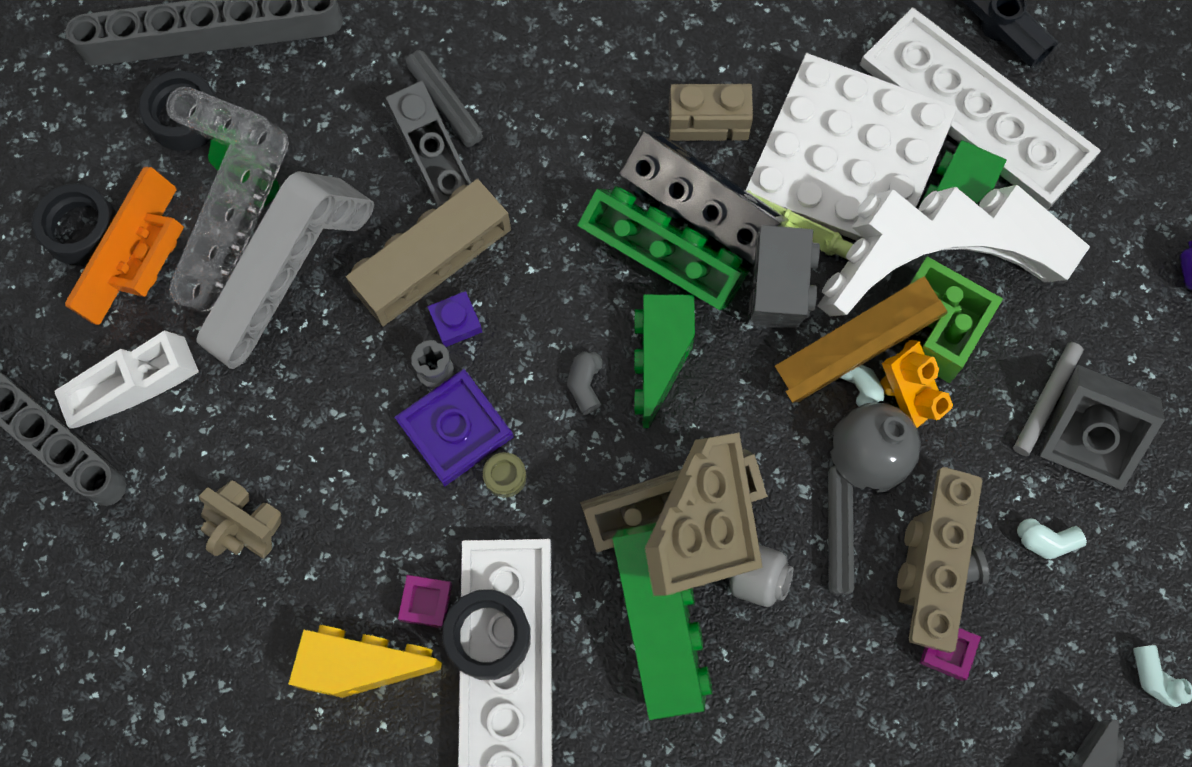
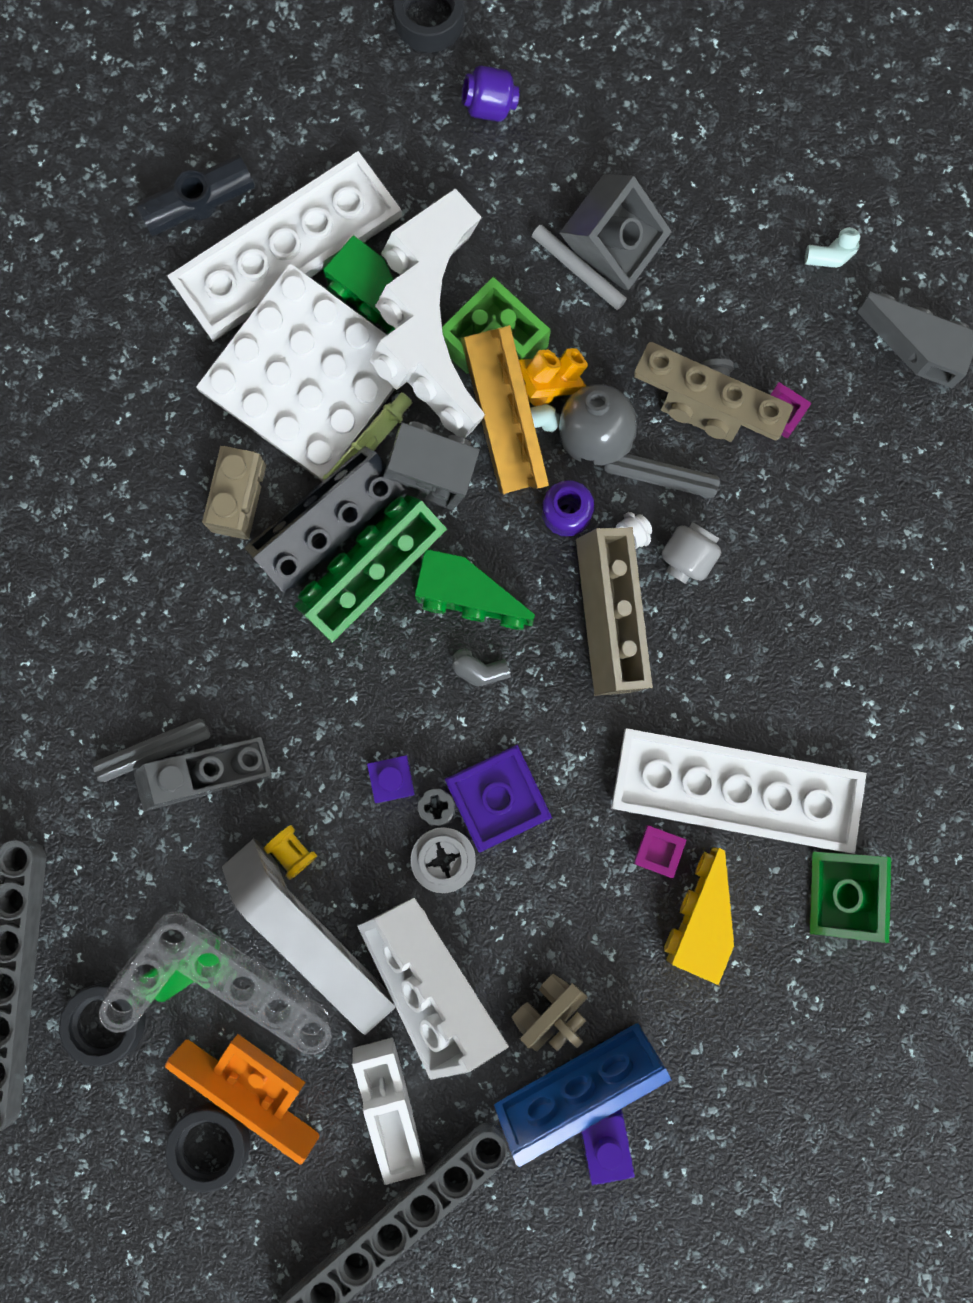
camera: 80 degrees left, 10 degrees up
(112, 596) = (607, 1150): none -> dark purple torso
(159, 559) = (580, 1093): none -> blue tile
(246, 389) = (430, 992): none -> white wedge
(365, 236) = (290, 852): none -> yellow bush
(388, 366) = (433, 877): none -> light grey gear
(429, 251) = (319, 791): dark tan brick -> none
(455, 619) = (737, 792): black tyre -> none
(504, 475) = (553, 760): olive tile -> none
(661, 633) = (722, 644): green brick -> none
(706, 522) = (657, 580): dark tan plate -> none
(769, 419) = (573, 497): none -> dark purple head
(770, 510) = (641, 528): none -> white plate
(1047, 542) = (707, 305): light aqua arm -> none

